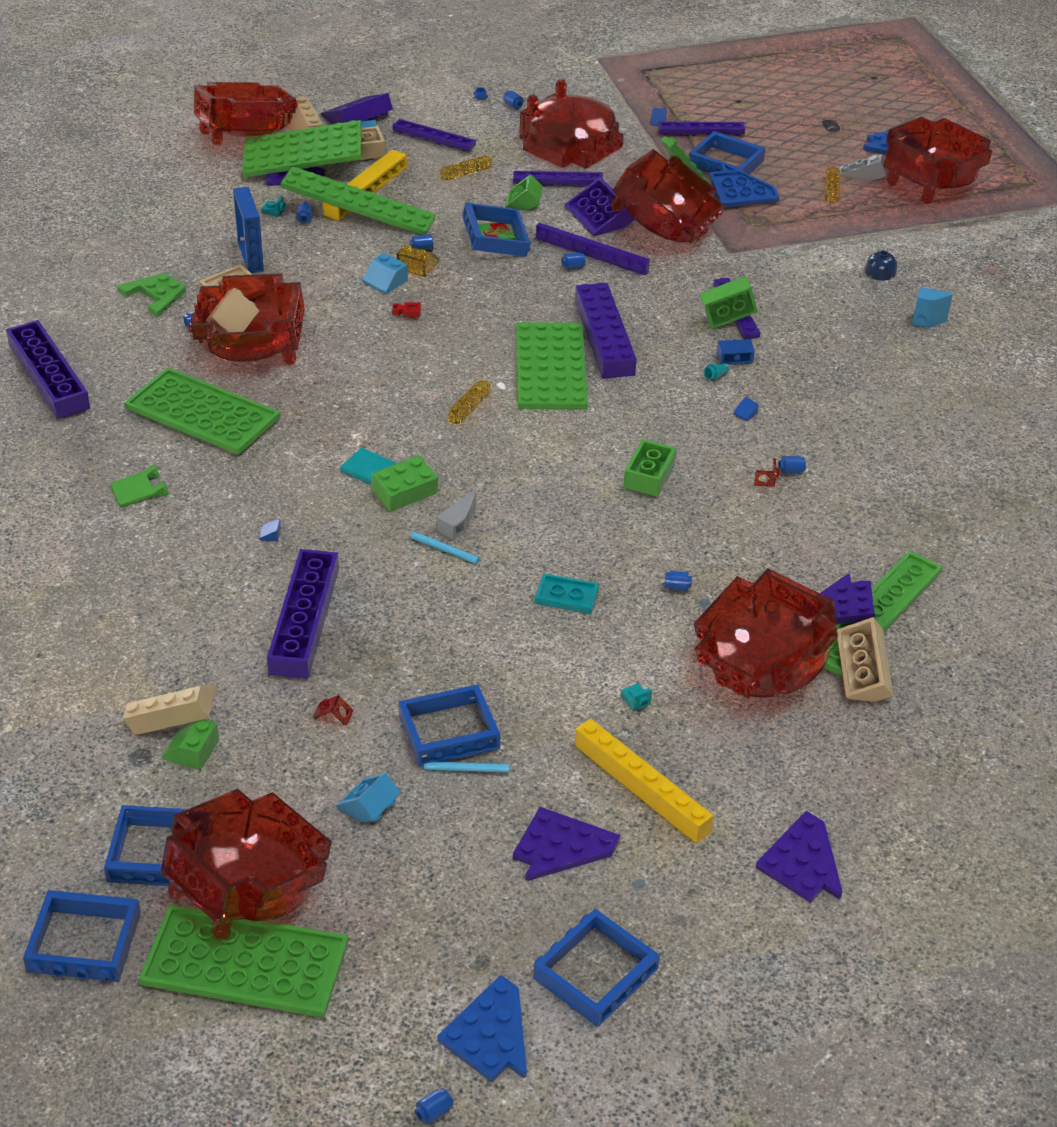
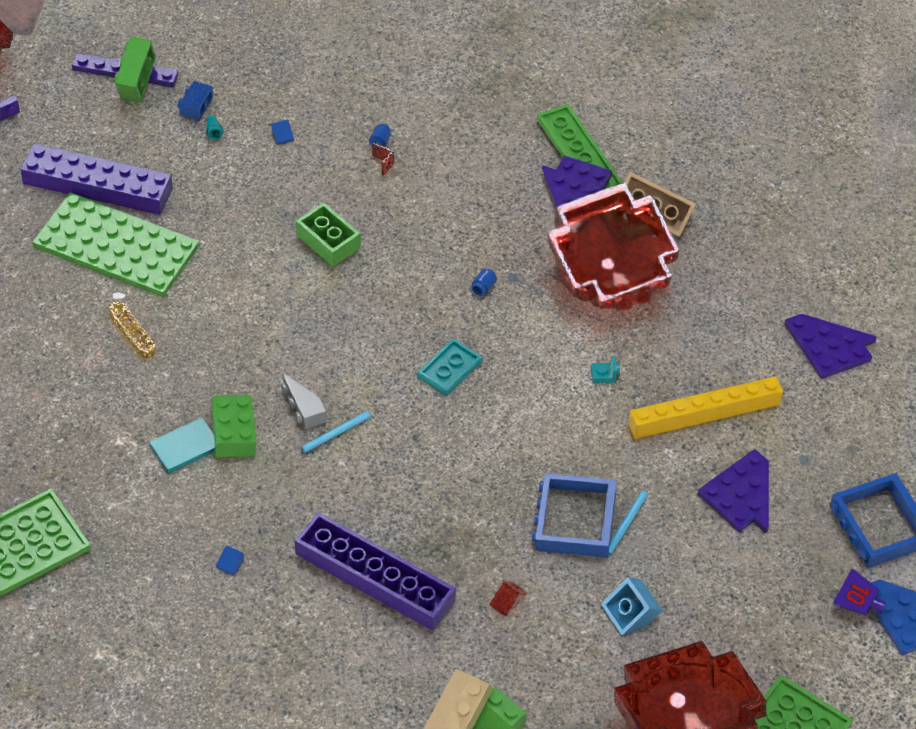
camera: 65 degrees left, 10 degrees up
(138, 487) = (88, 657): bright green flag -> none
(480, 967) = (859, 595): none -> dark purple torso

